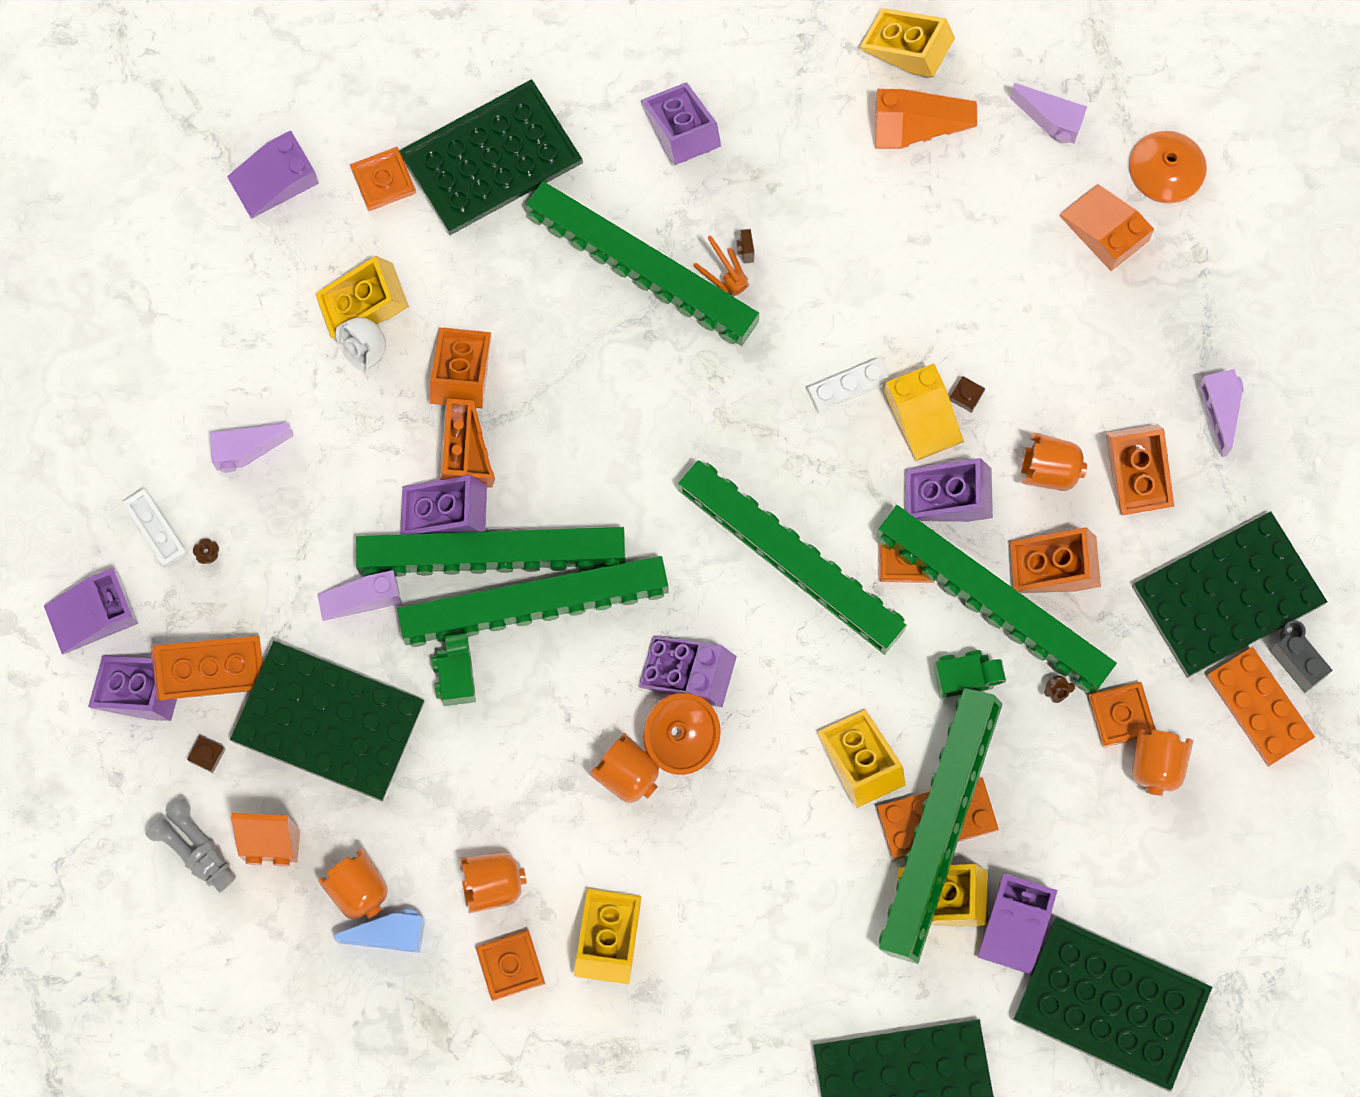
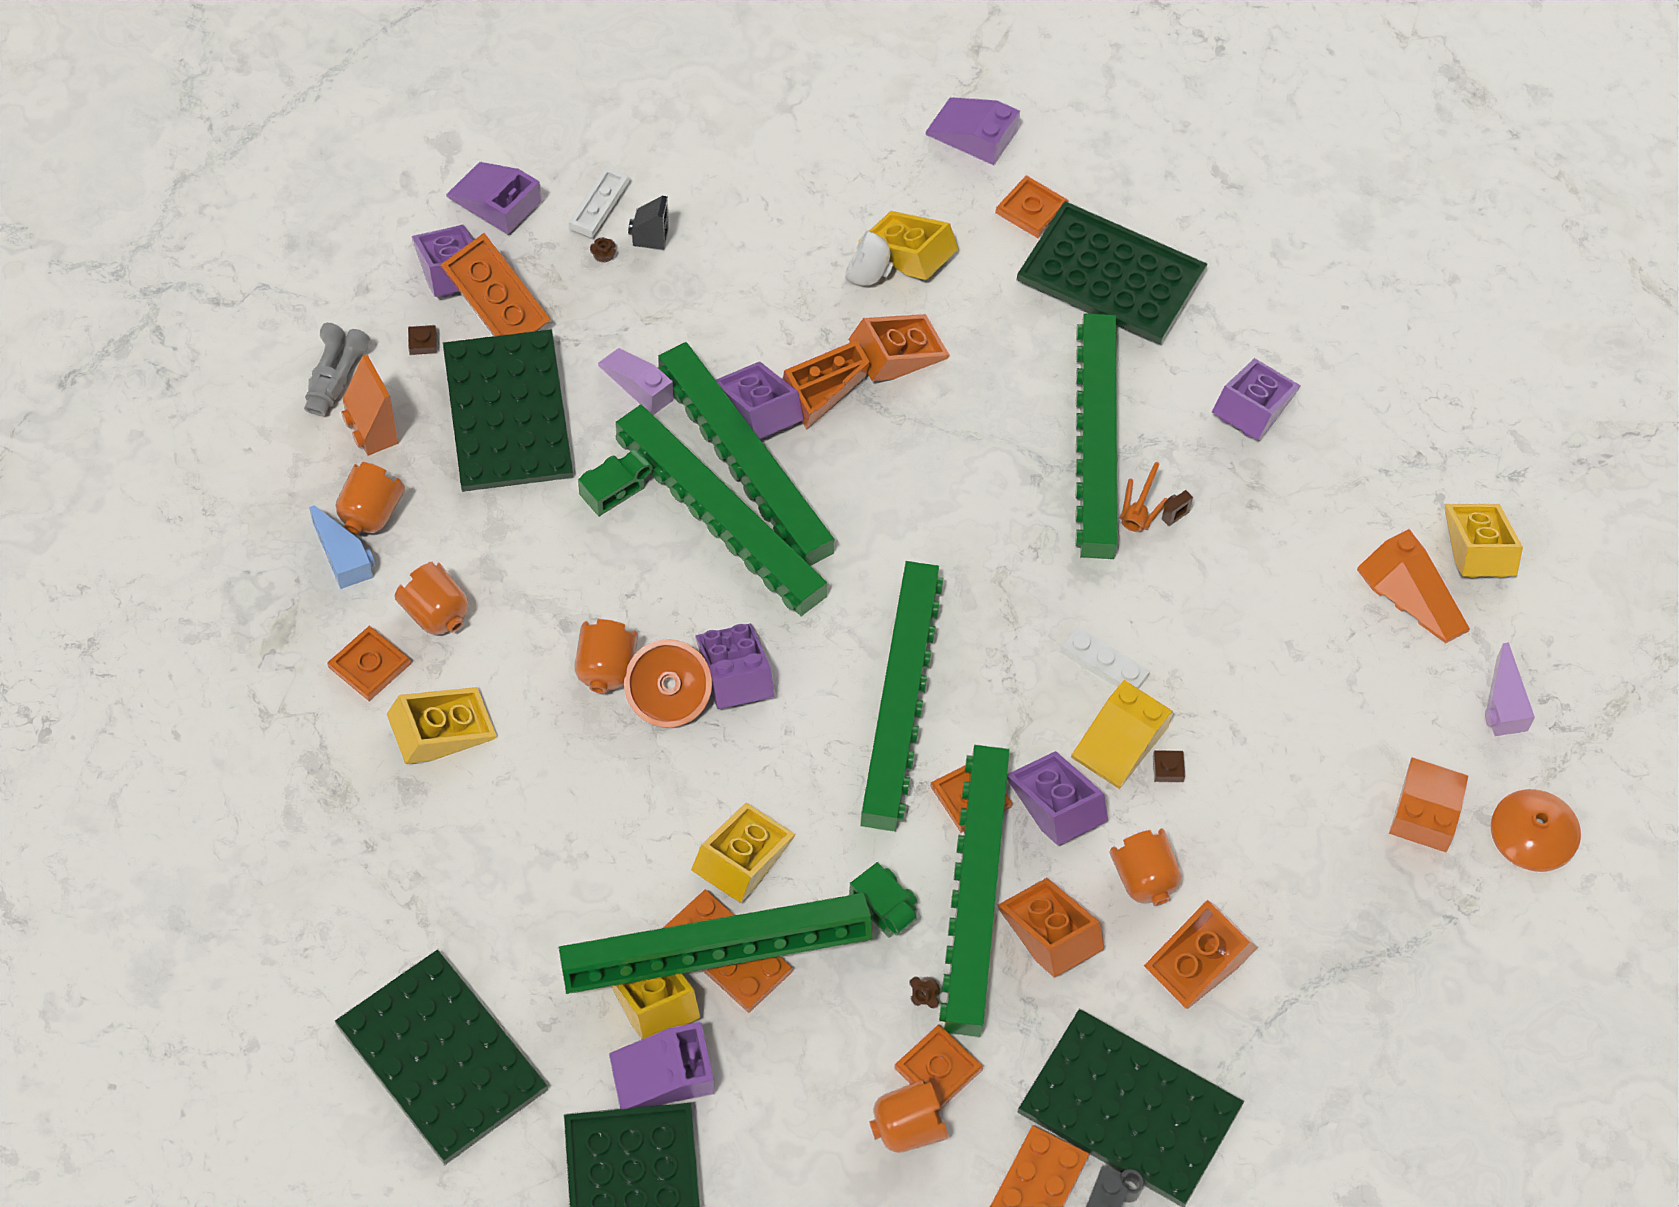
camera: 55 degrees right, 15 degrees down
(211, 498) = (650, 224): none -> black slope
(242, 446) = (716, 227): lavender slope -> none
(1222, 399) = (1322, 1000): lavender slope -> none

